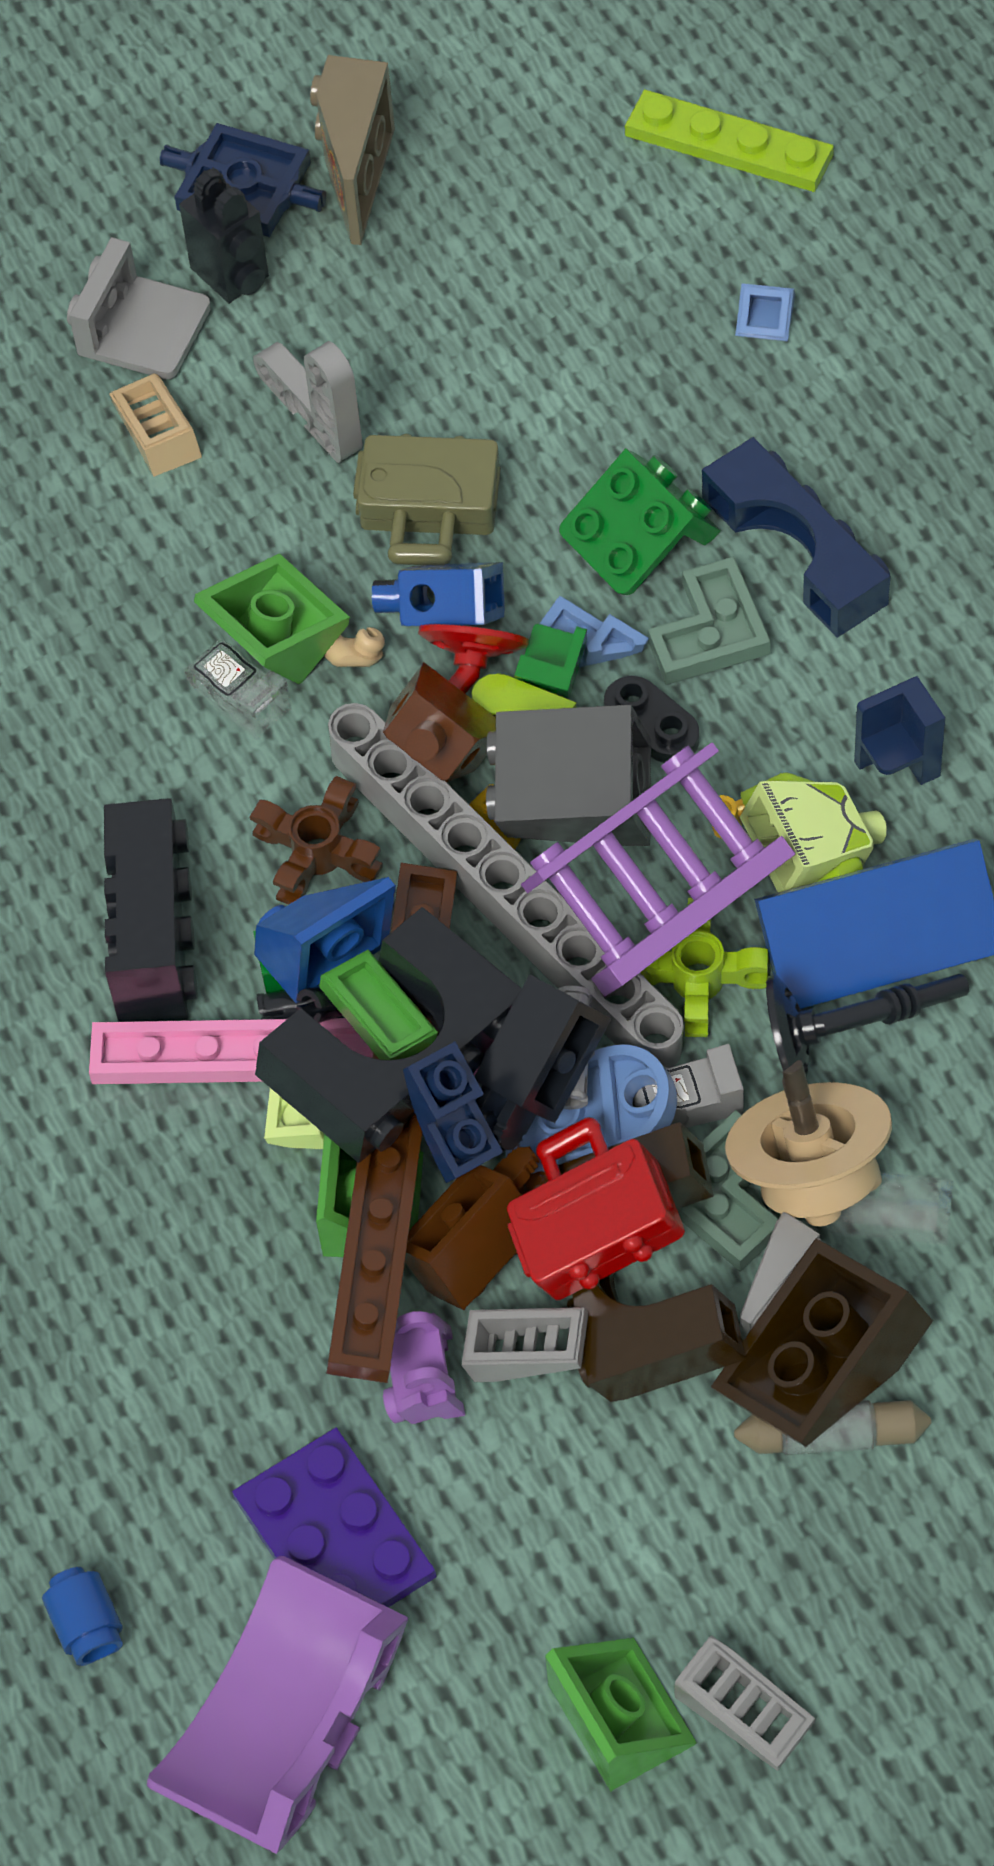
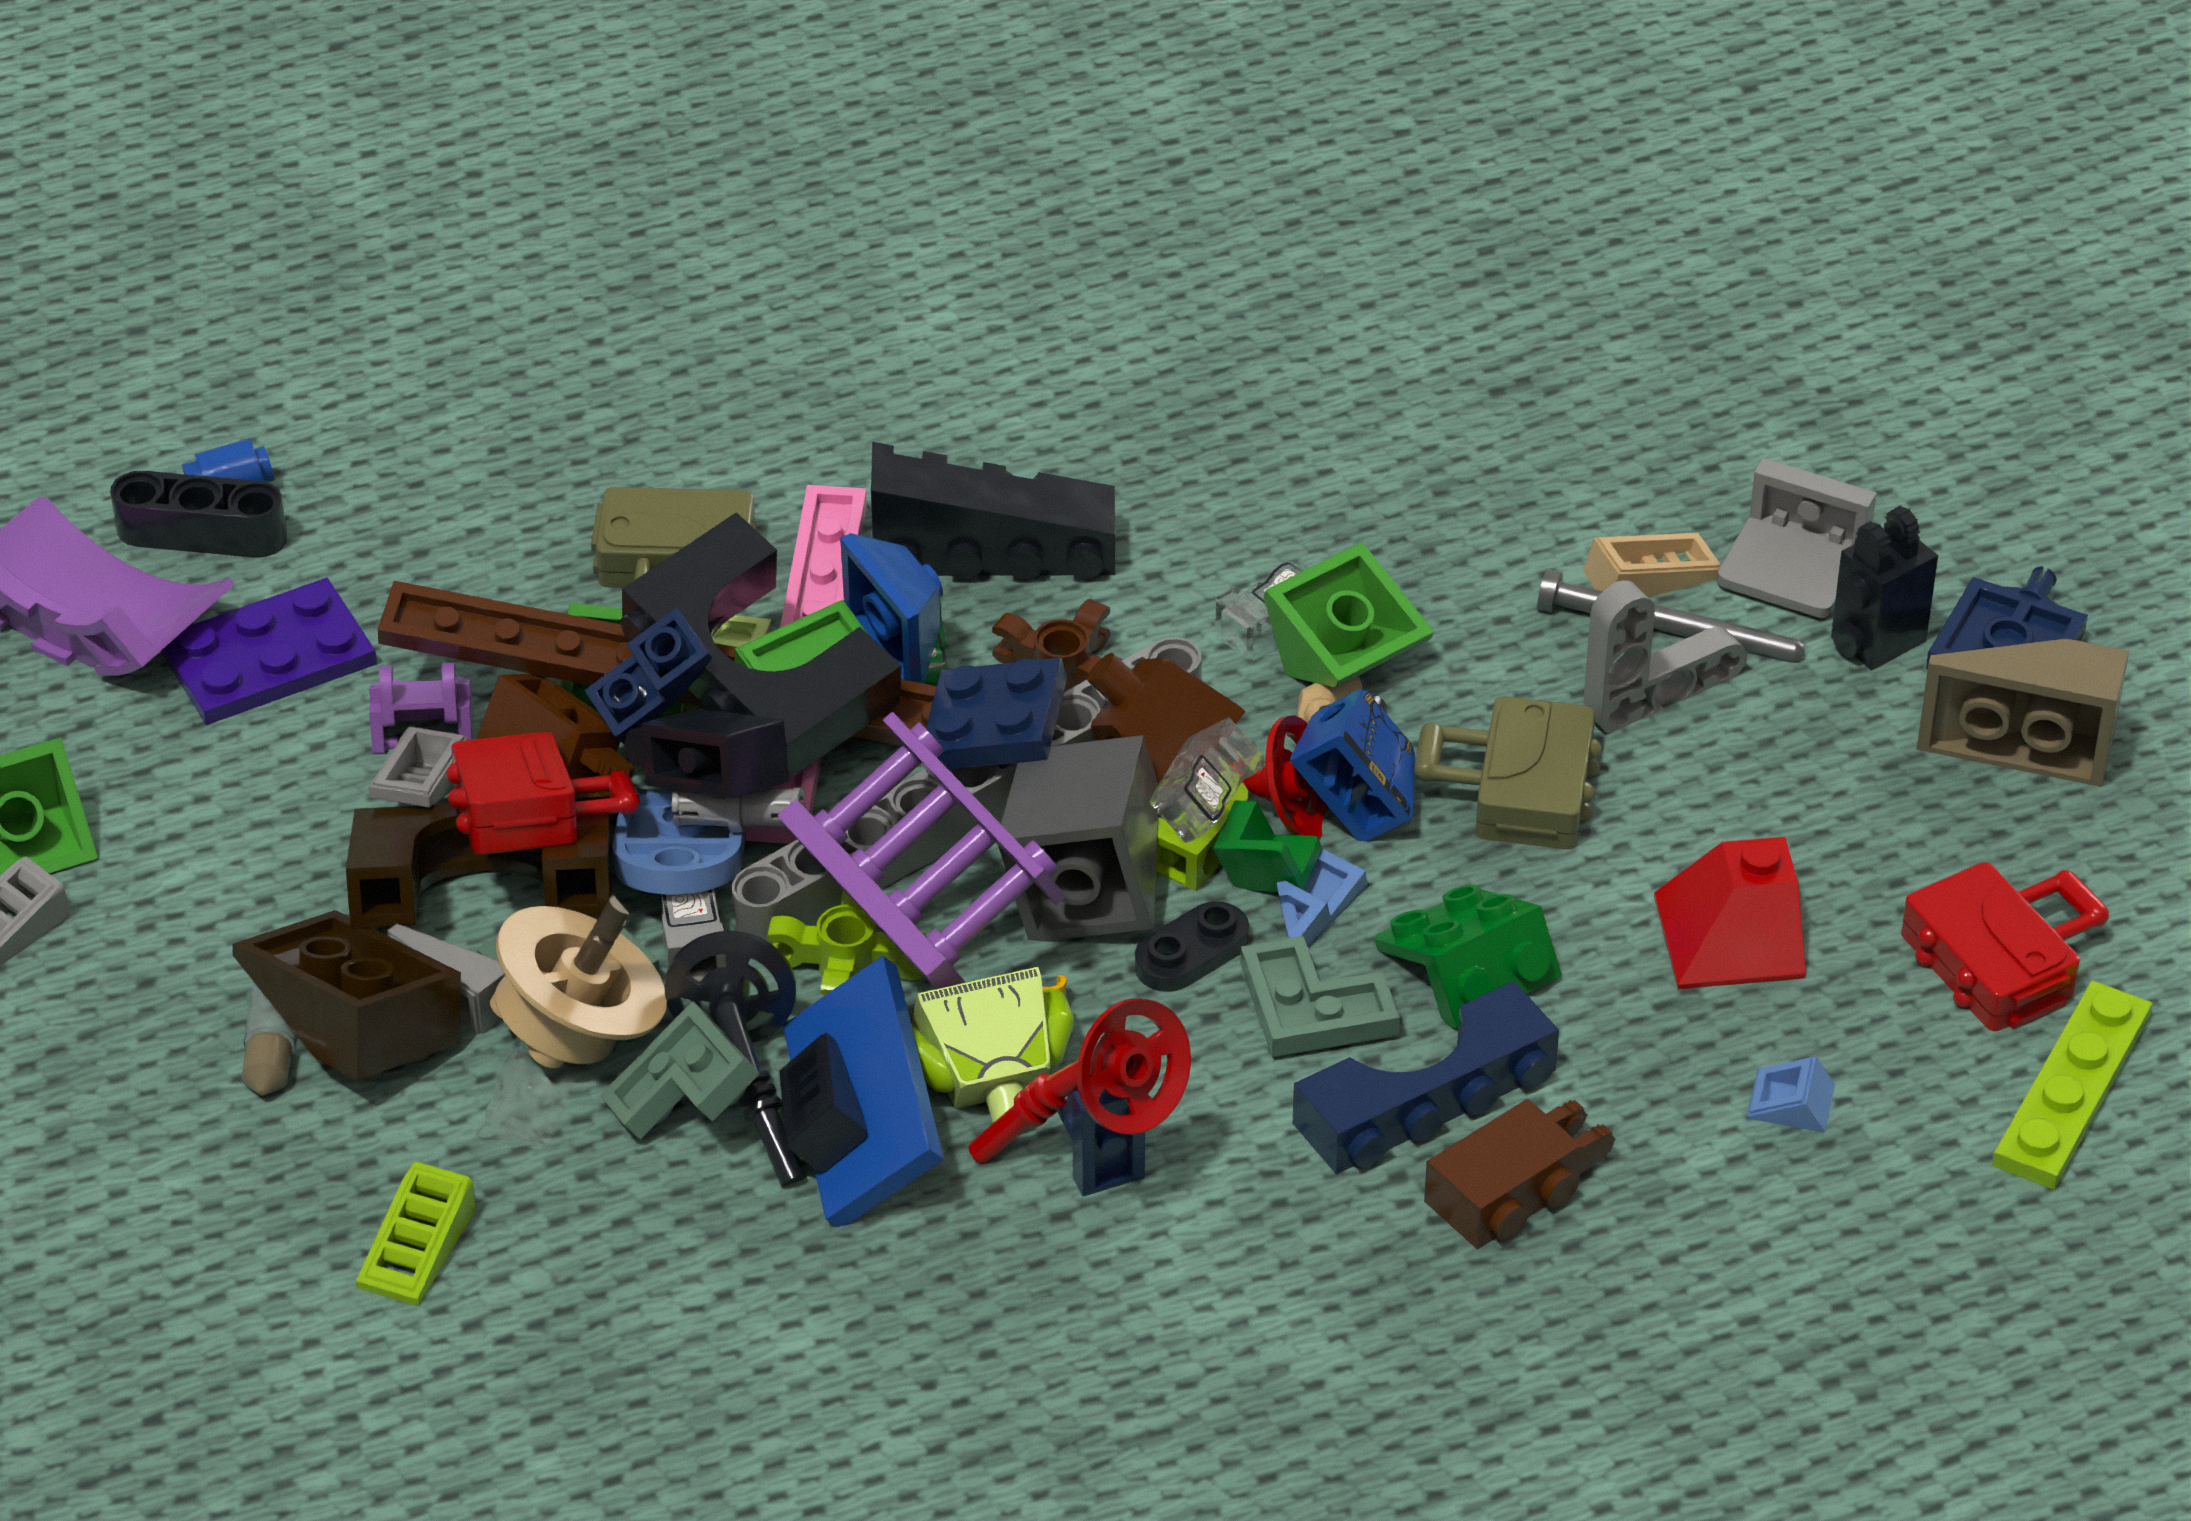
camera: 90 degrees right, 15 degrees down
(144, 1601) = (199, 514): none -> black beam
(168, 1180) = (649, 524): none -> olive piece
(196, 485) = (1682, 623): none -> flat silver bar
(454, 844) = (997, 712): none -> dark blue plate
(514, 686) = (1205, 778): none -> clear leg
(584, 346) = (1734, 916): none -> red slope
(596, 181) = (1996, 945): none -> red piece
(875, 1047) = (684, 1059): none -> sand green plate
(886, 473) = (1513, 1169): none -> reddish brown hinge
(890, 935) = (820, 1105): none -> black slope
(911, 679) = (1121, 1065): none -> red dish

